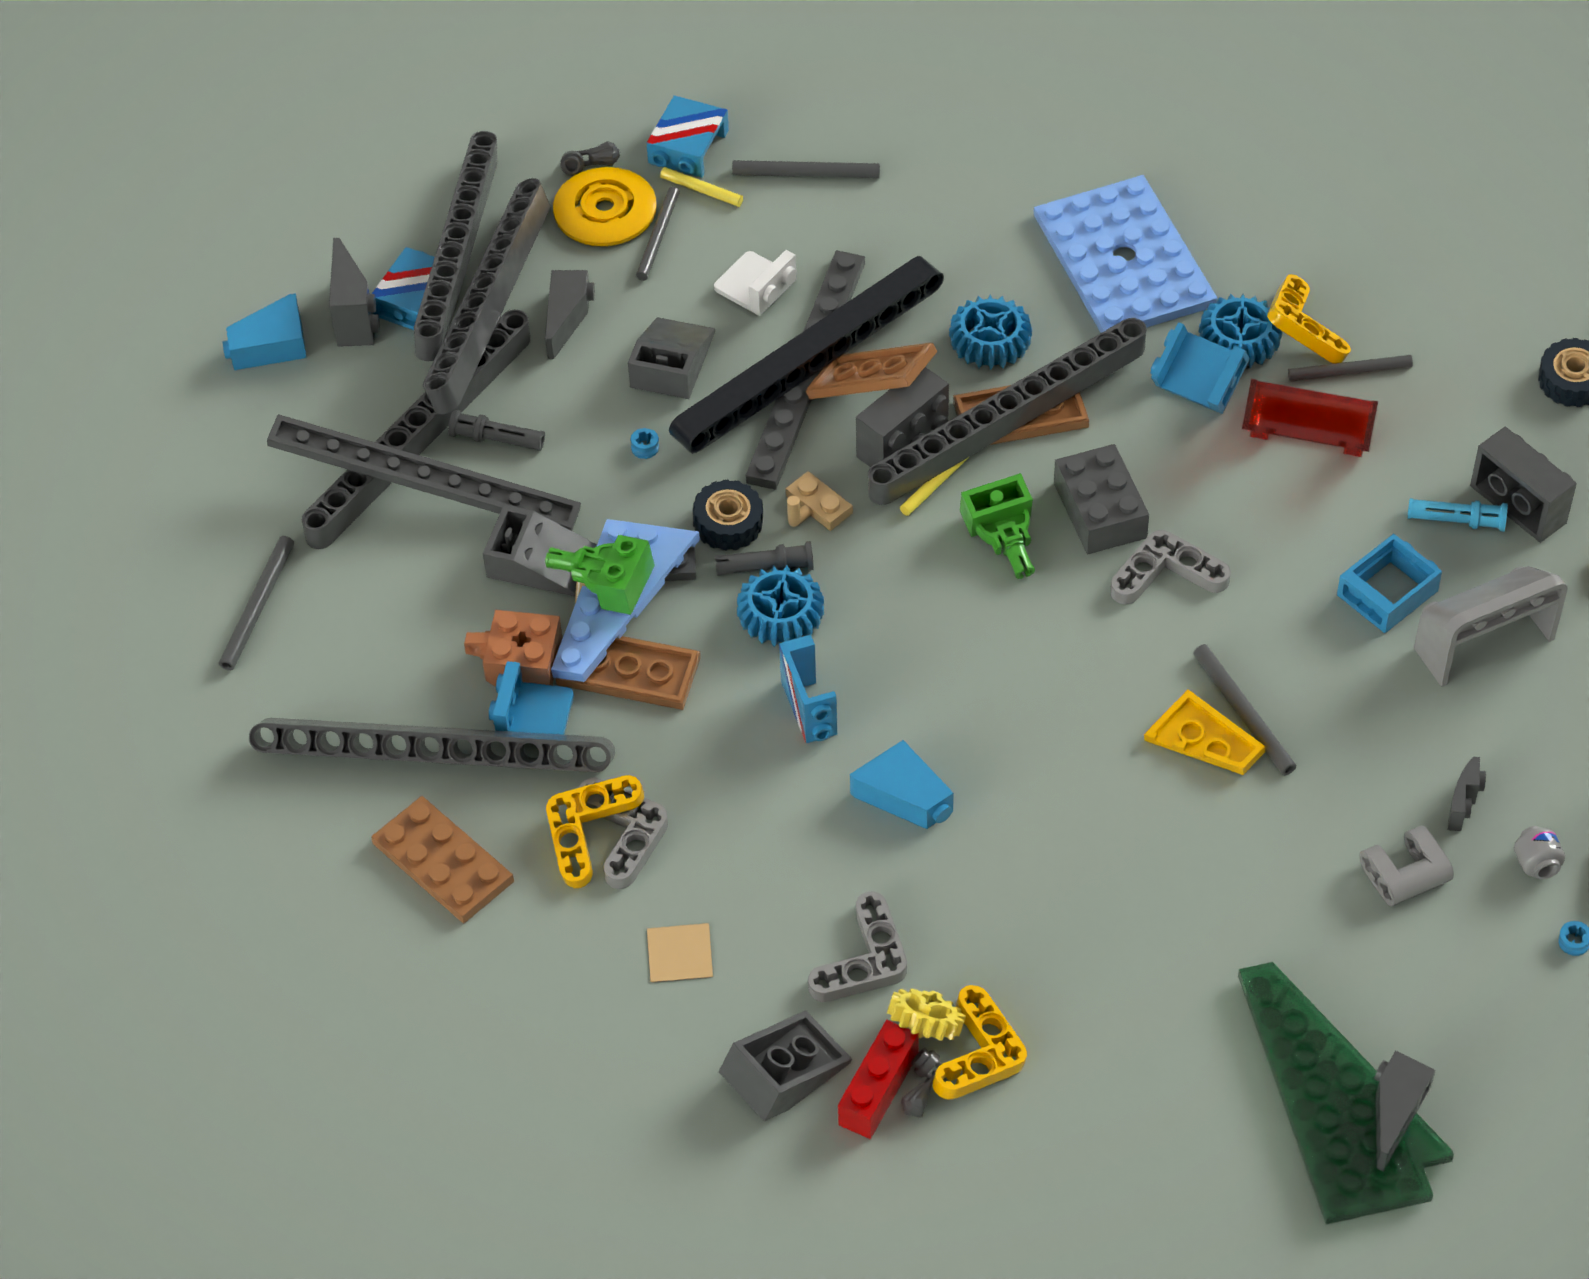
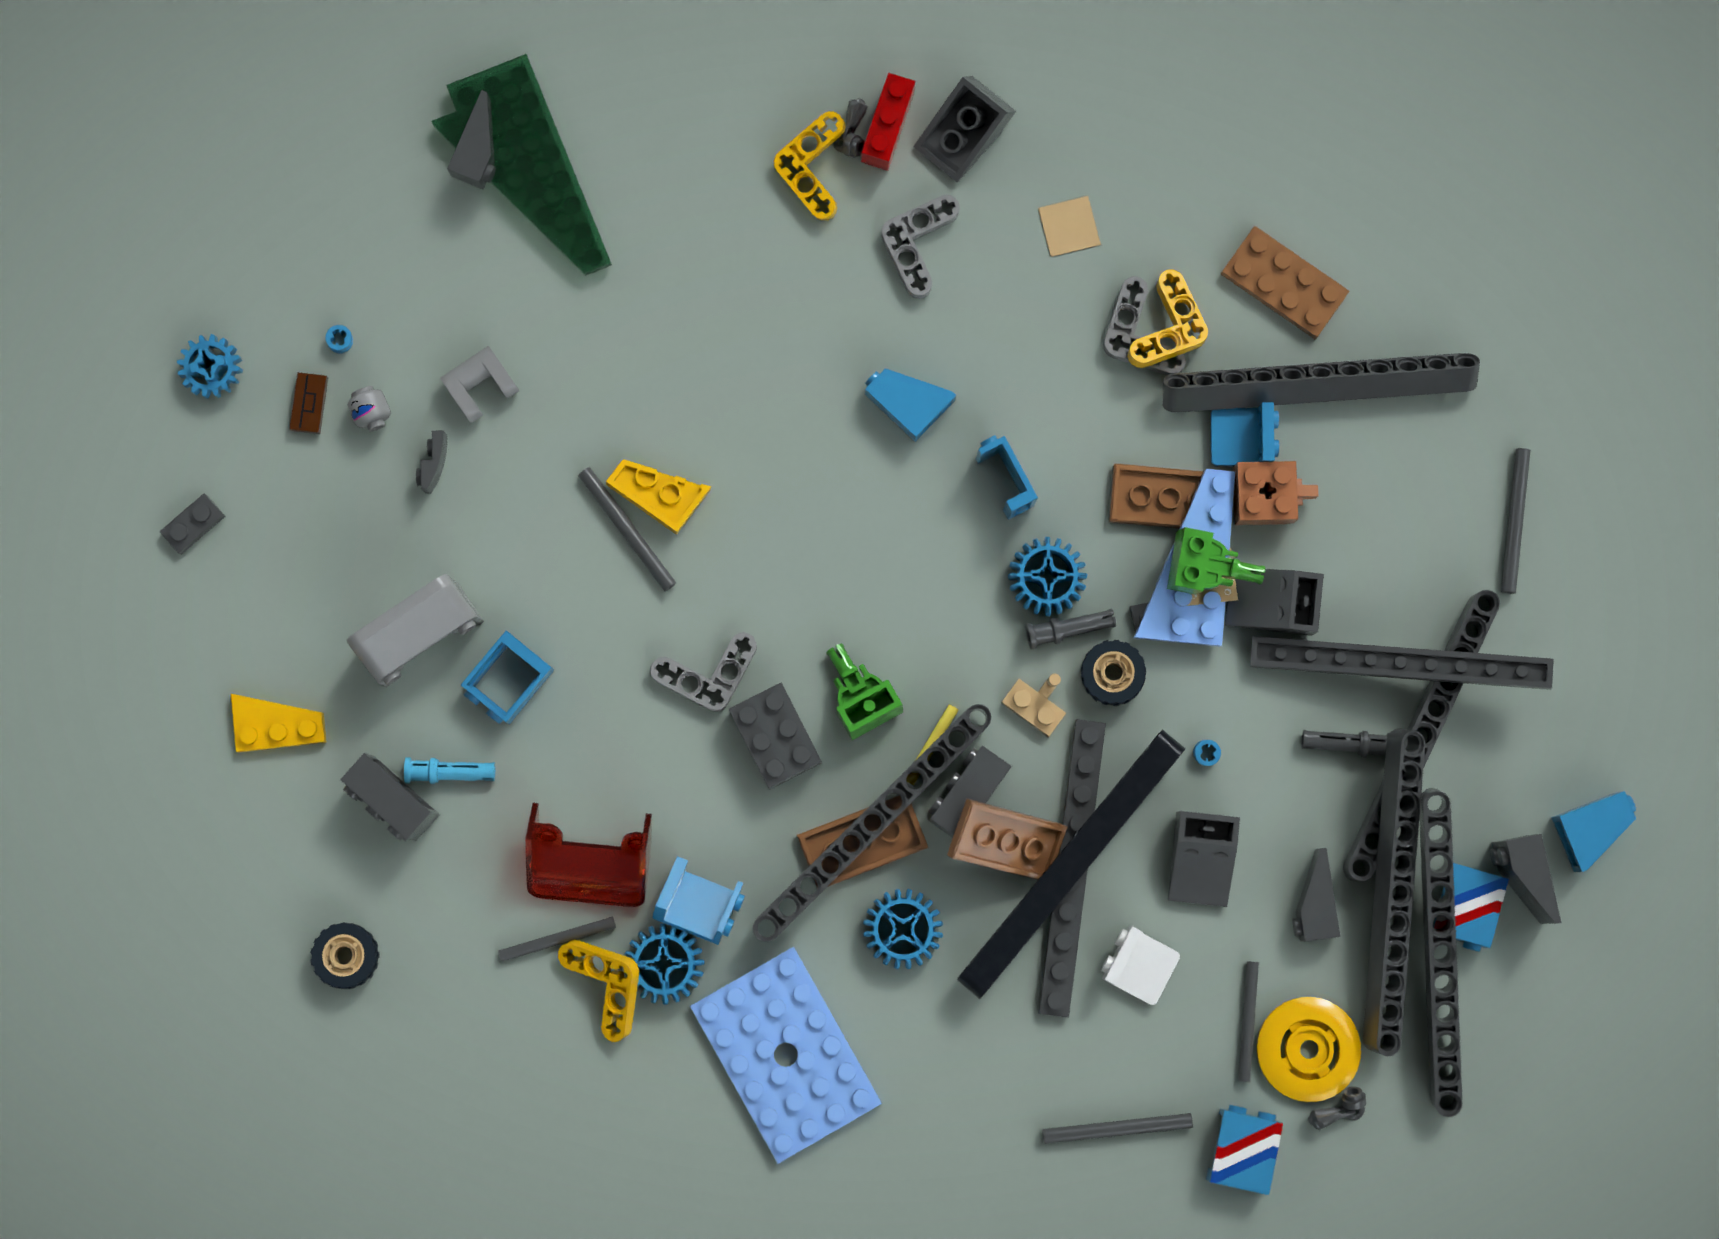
camera: 165 degrees right, 30 degrees up
(701, 186) = (1217, 1090): light yellow bar -> none
(926, 1014) = (845, 178): light yellow gear -> none

